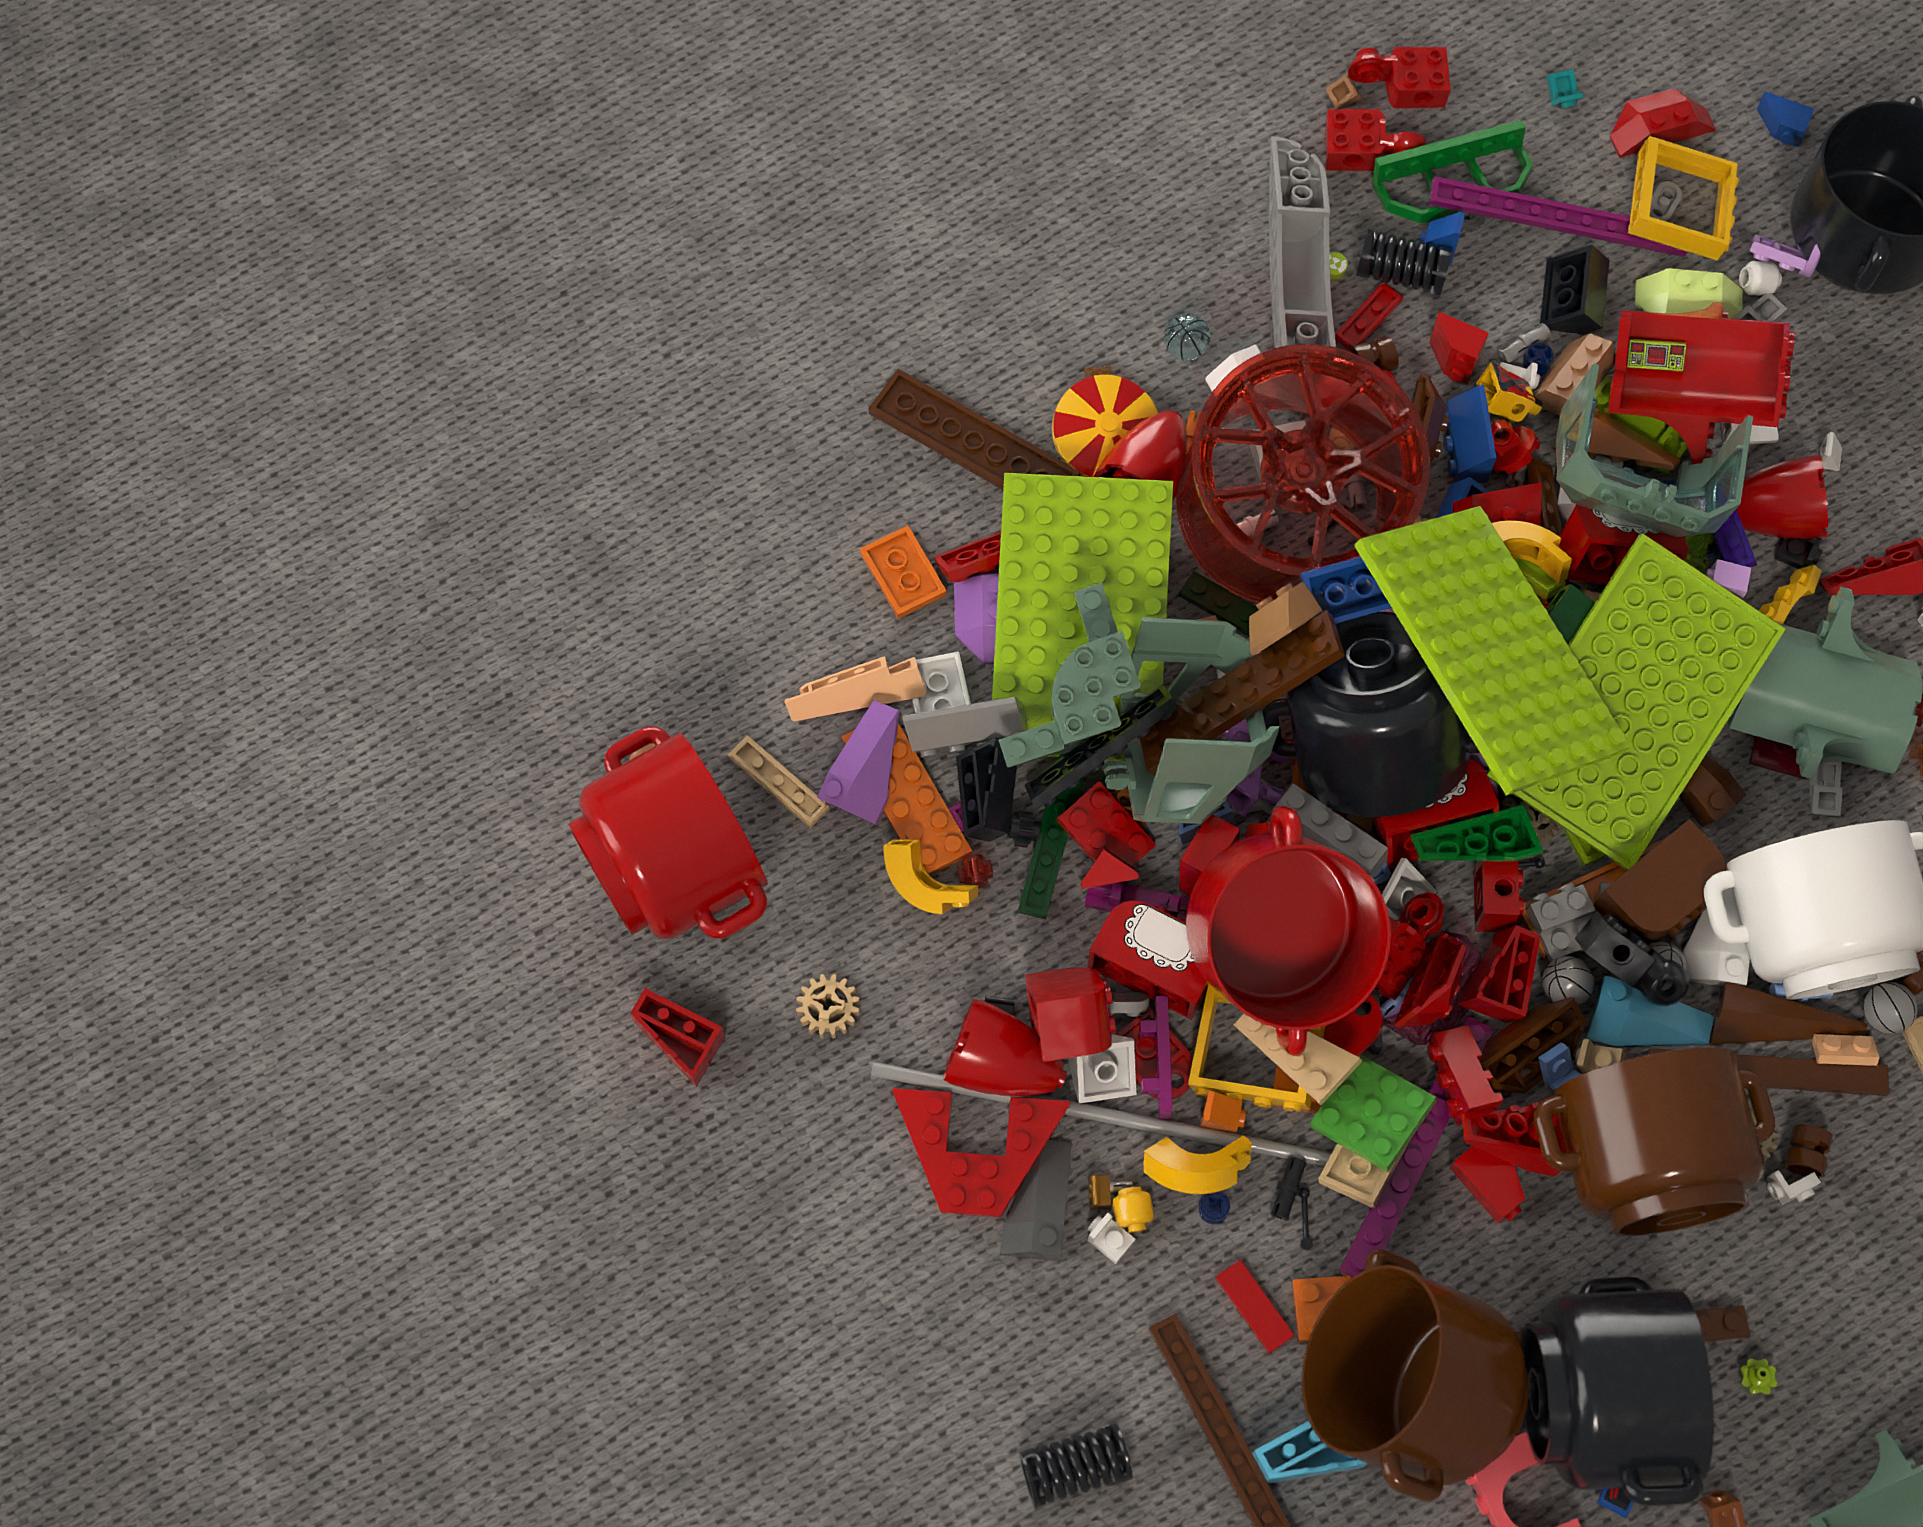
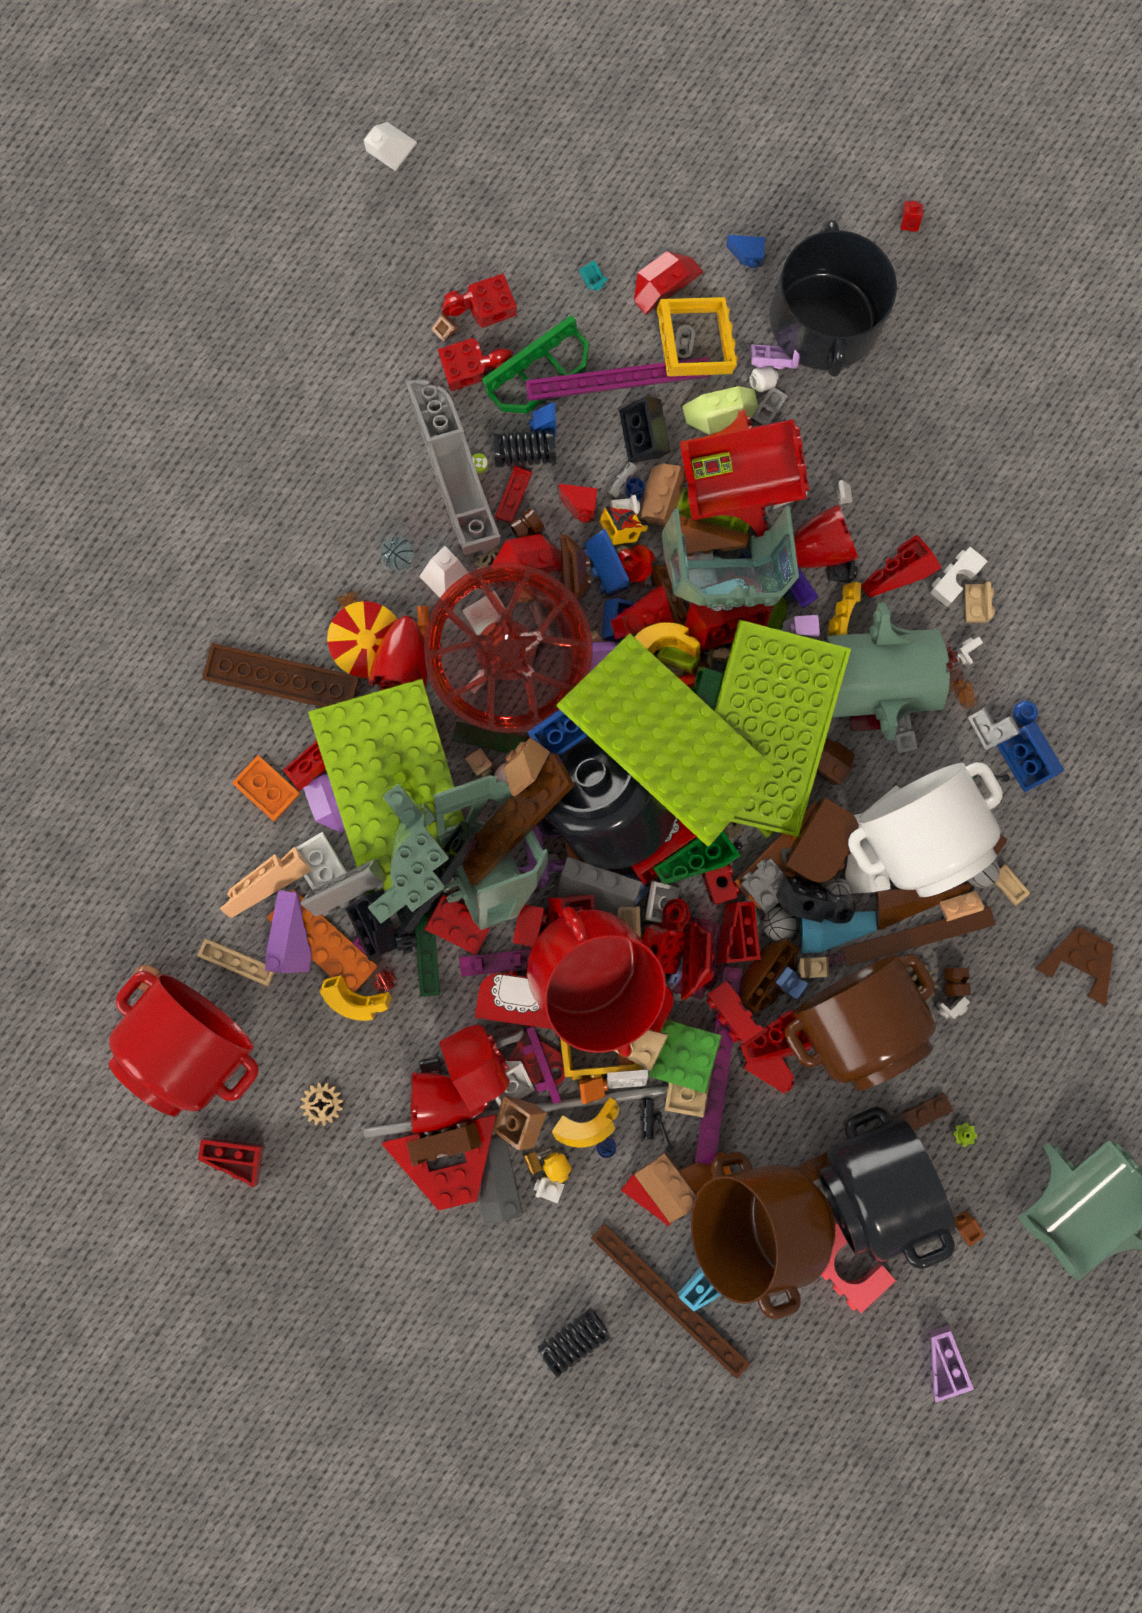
camera: 20 degrees left, 15 degrees up
(984, 1111) = (444, 1143): none -> reddish brown wedge
(1100, 1125) = (519, 1122): none -> medium nougat slope
(1108, 870) = (469, 954): red slope -> none
(1279, 1112) = (627, 1079): none -> white tile
(1286, 1288) = (667, 1186): none -> medium nougat slope

